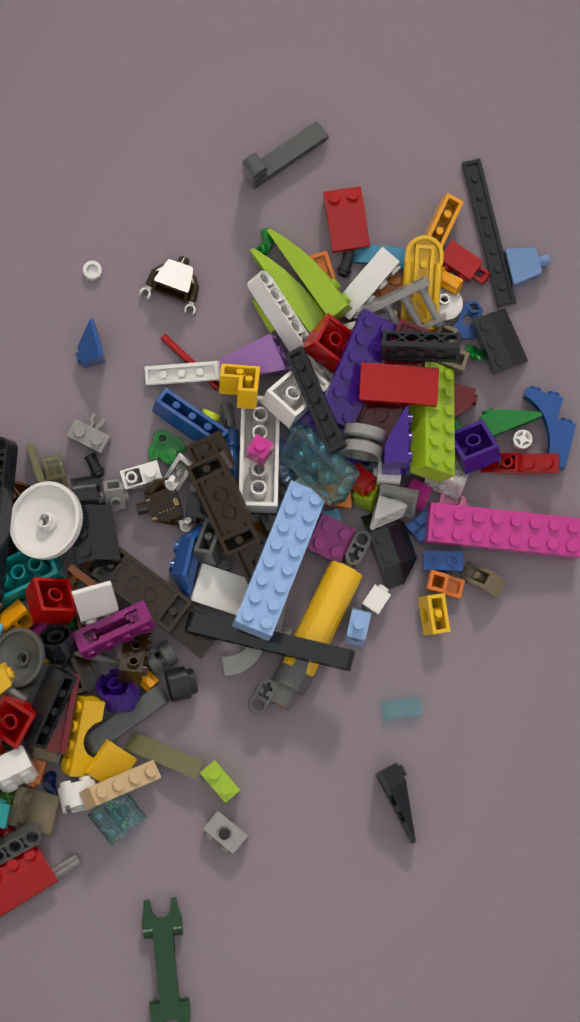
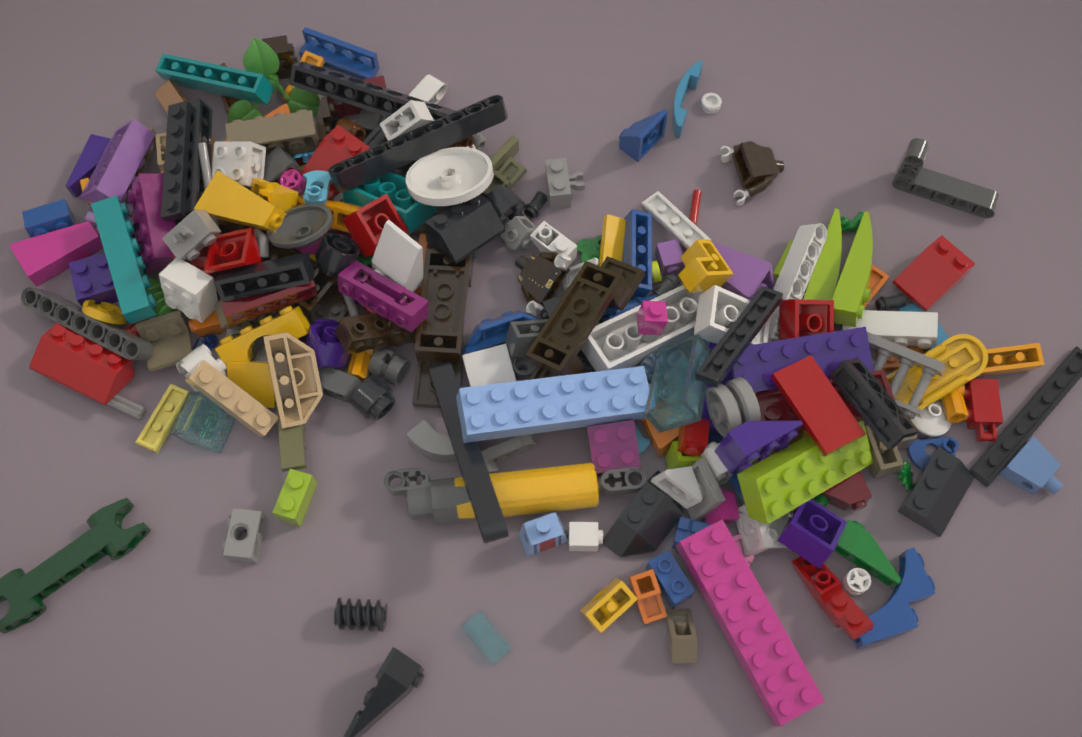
camera: 65 degrees right, 15 degrees down
(90, 306) = (689, 80): none -> dark azure slope
(92, 844) = (162, 419): none -> light yellow tile
(134, 733) = (293, 378): none -> tan wedge
(169, 432) = (612, 238): none -> yellow tile
(207, 397) = (668, 257): none -> medium lavender brick
(334, 783) = (360, 615): none -> black piece

